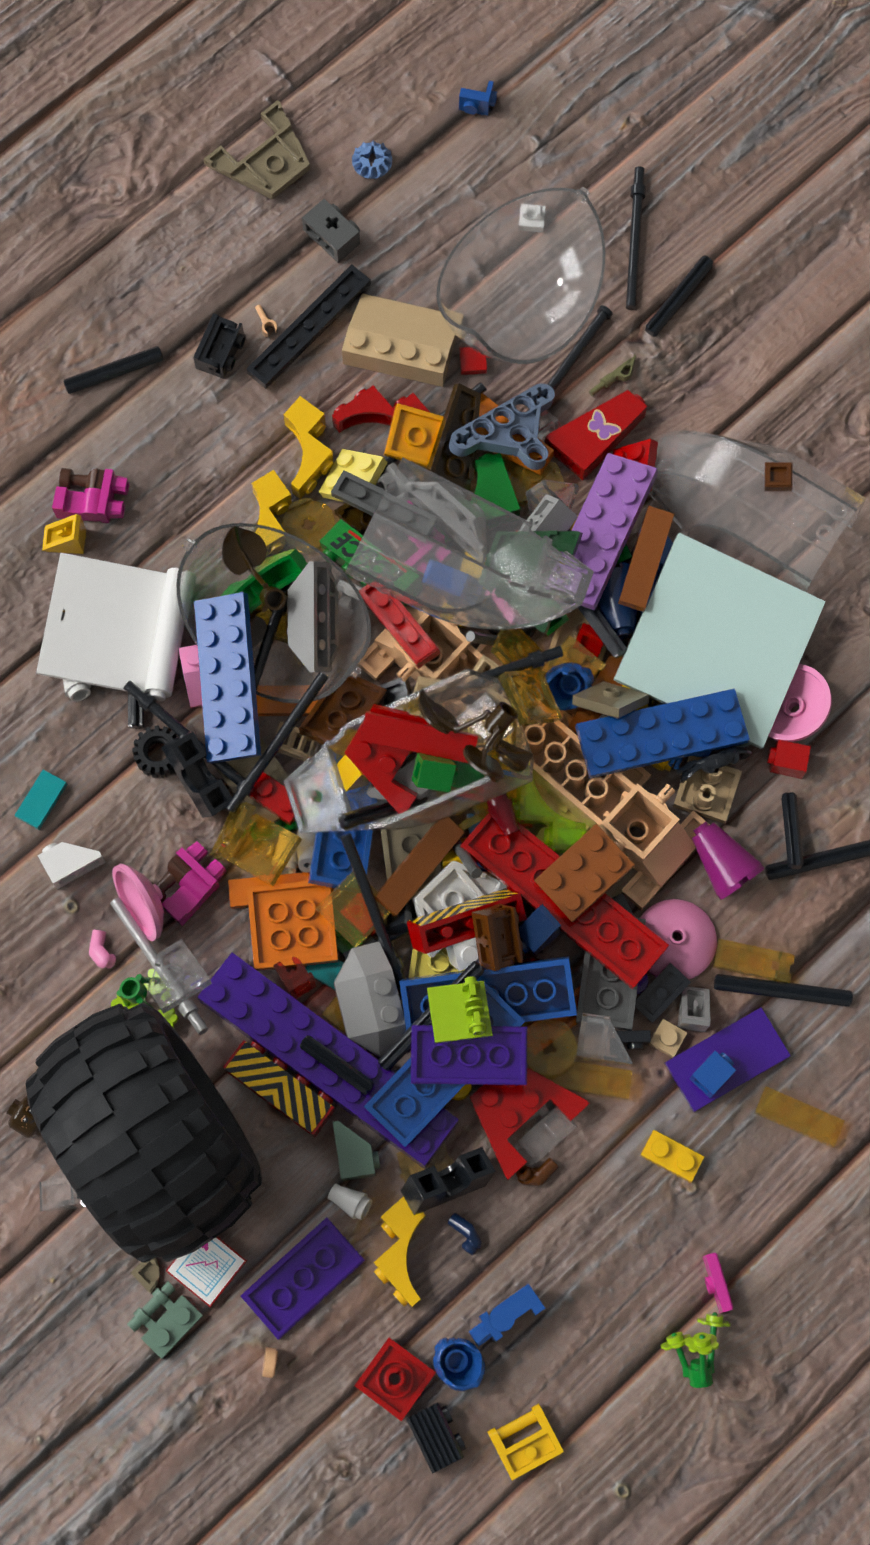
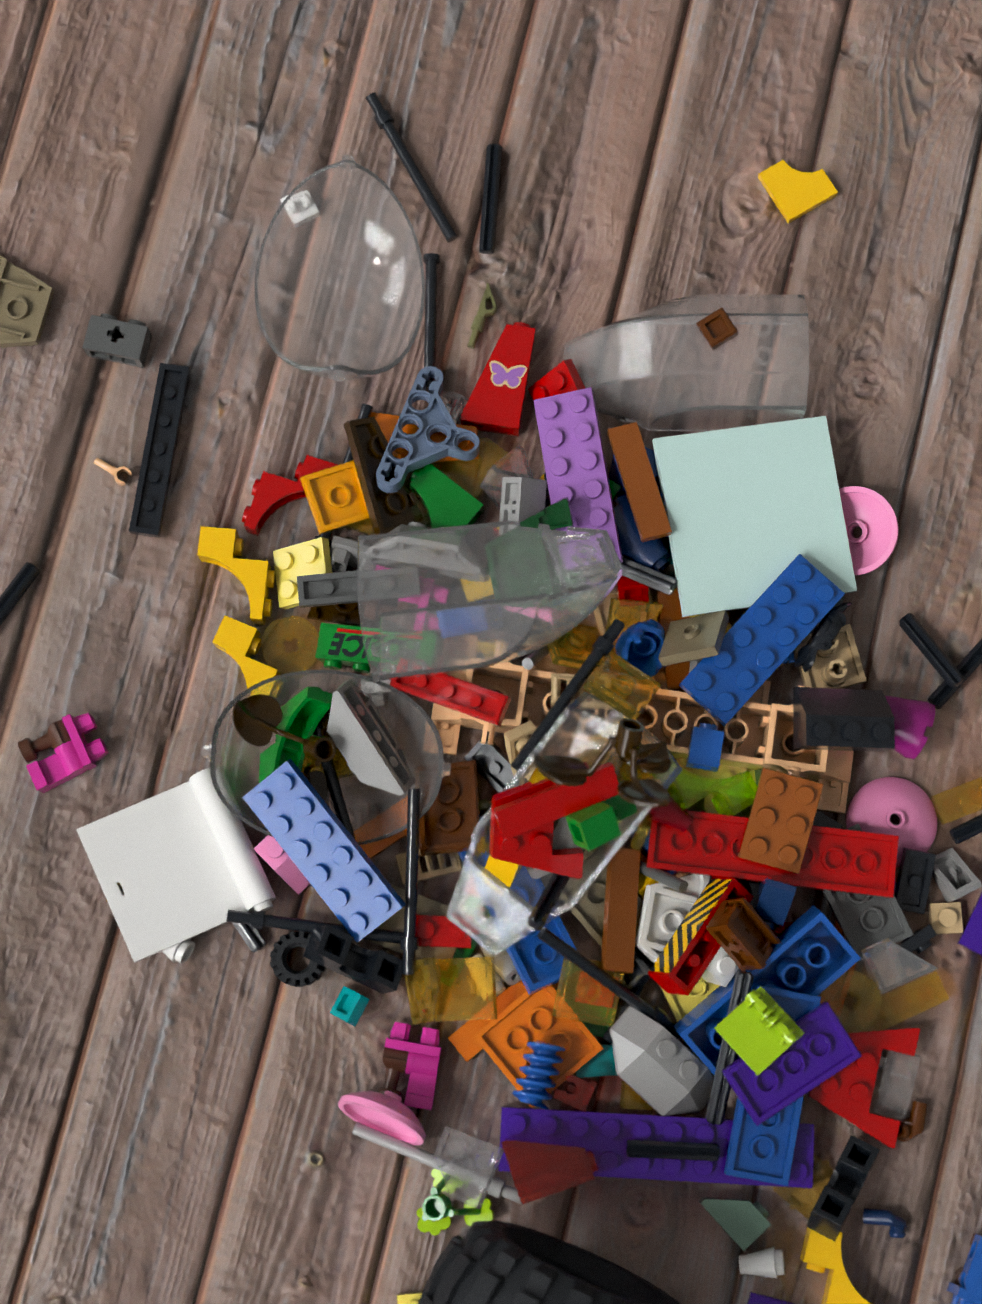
camera: 30 degrees left, 5 degrees up
(40, 799) = (217, 1077): teal tile -> none
(65, 536) = (65, 807): yellow slope -> none
(68, 862) = (285, 1122): white slope -> none
(98, 952) = (372, 1187): bright pink arm -> none
(172, 809) = (349, 1006): none -> teal plate
(219, 346) = (87, 525): black hinge -> none
(231, 1010) = (547, 1167): none -> clear red slope
(275, 942) = (538, 1073): none -> blue piece
(279, 1088) = (631, 1203): brick -> none
(381, 164) = (103, 256): medium blue gear -> none
(399, 340) = (255, 408): tan slope -> none
(472, 362) = (338, 390): red tile -> none
(476, 101) = (171, 125): blue bracket -> none
(563, 783) = (705, 747): none -> blue brick
(681, 828) = (842, 720): none -> black slope
(789, 759) = (884, 584): red brick -> none

